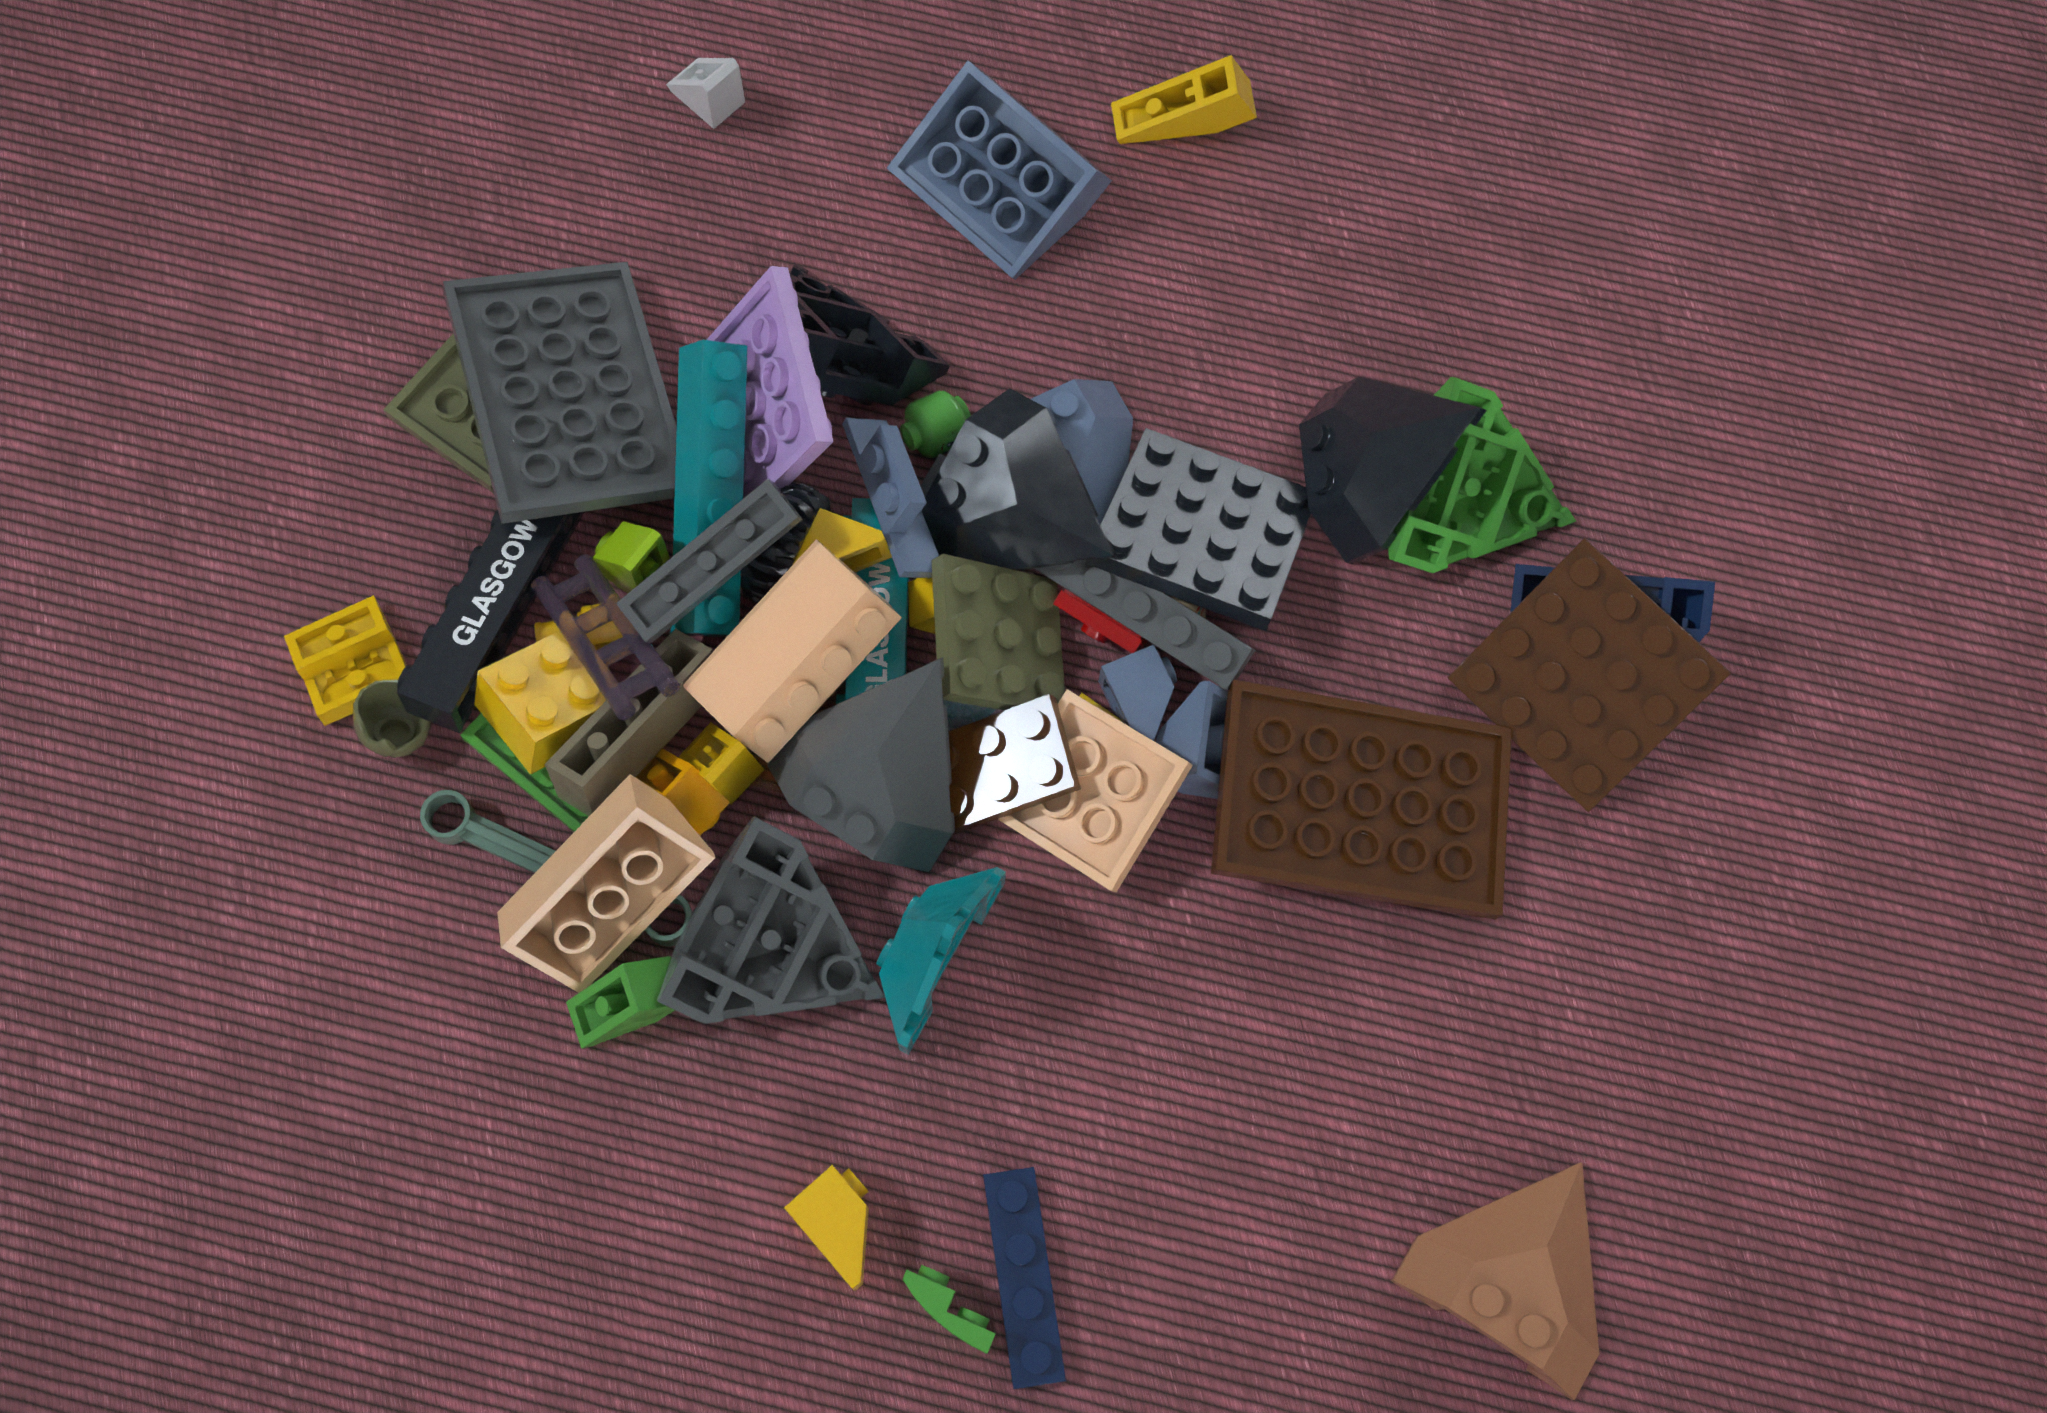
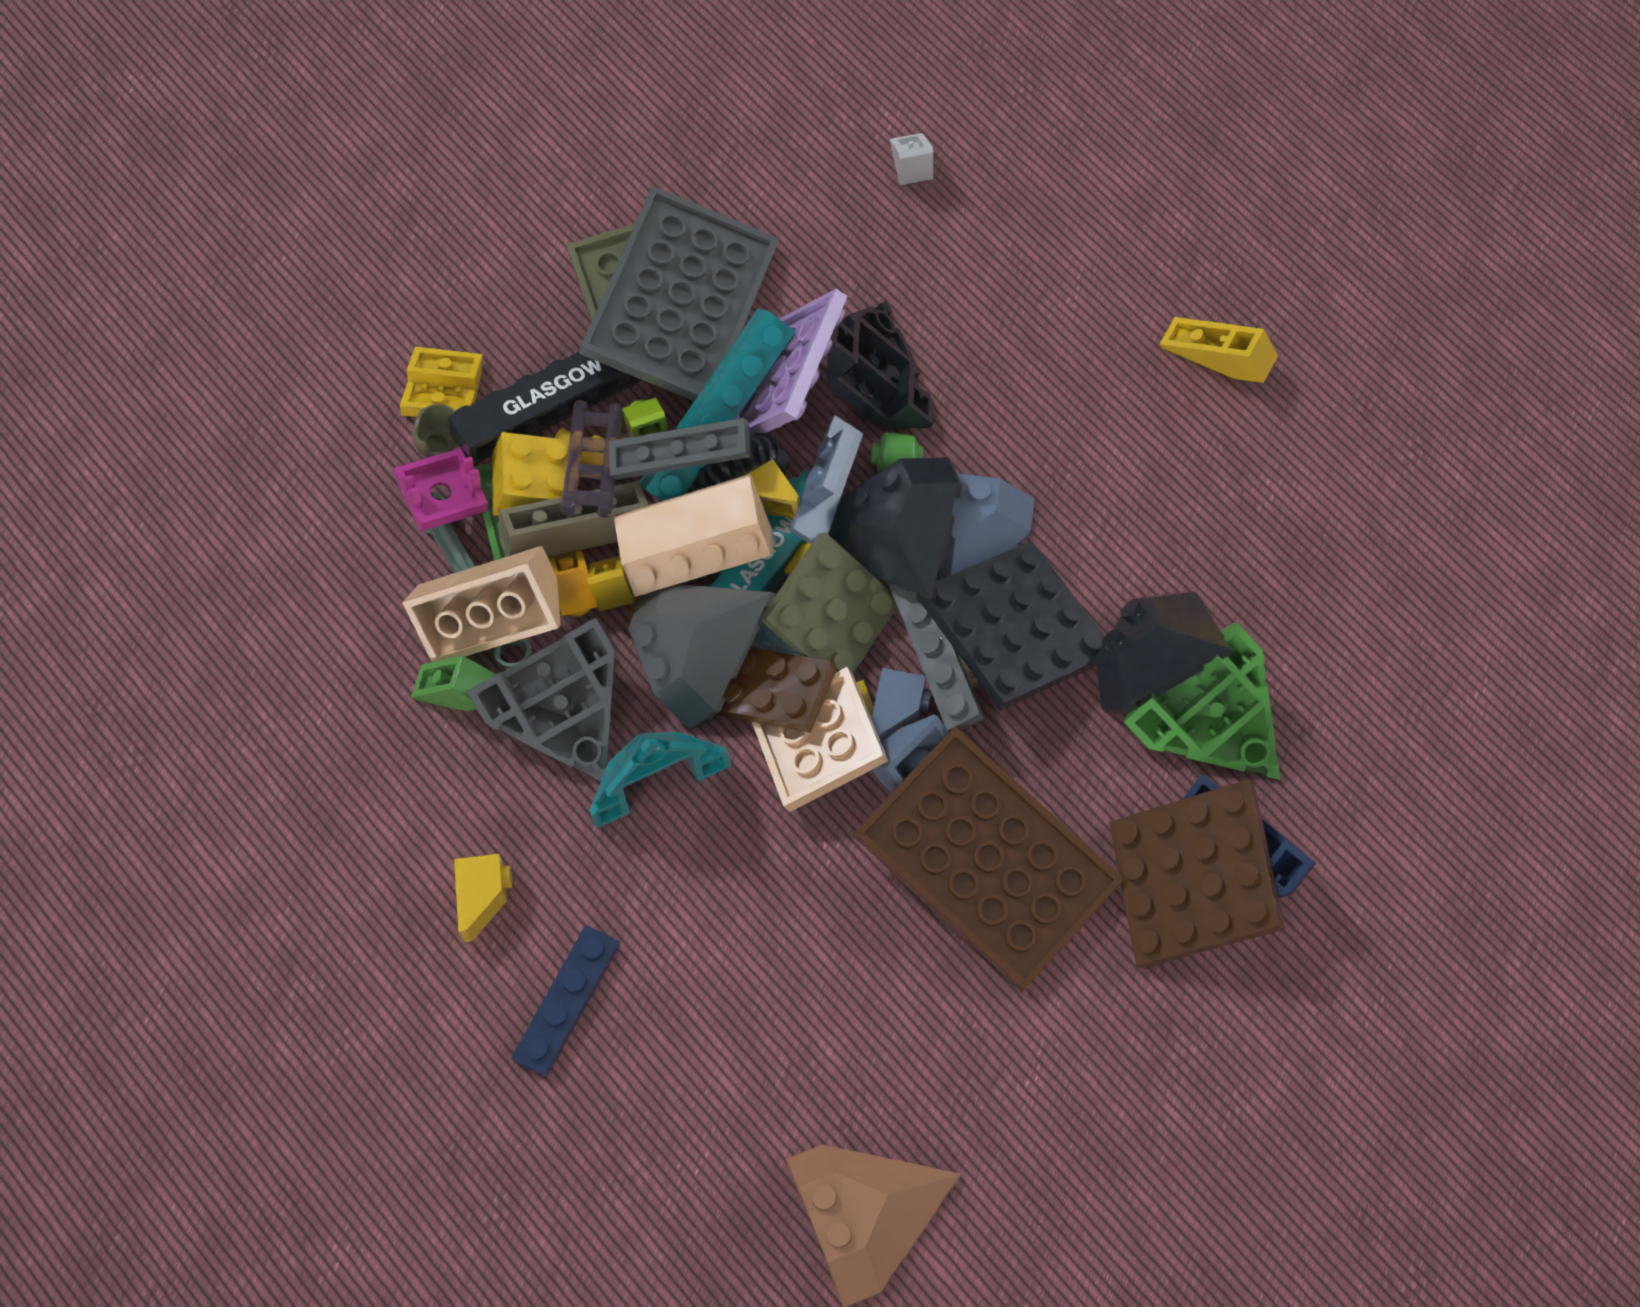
camera: 45 degrees right, 5 degrees down
(438, 754) = (445, 469): none -> dark pink piece
(933, 1295) = (504, 978): bright green slope -> none
(997, 172) = (1060, 318): sand blue slope -> none
(1097, 623) = (902, 643): red plate -> none

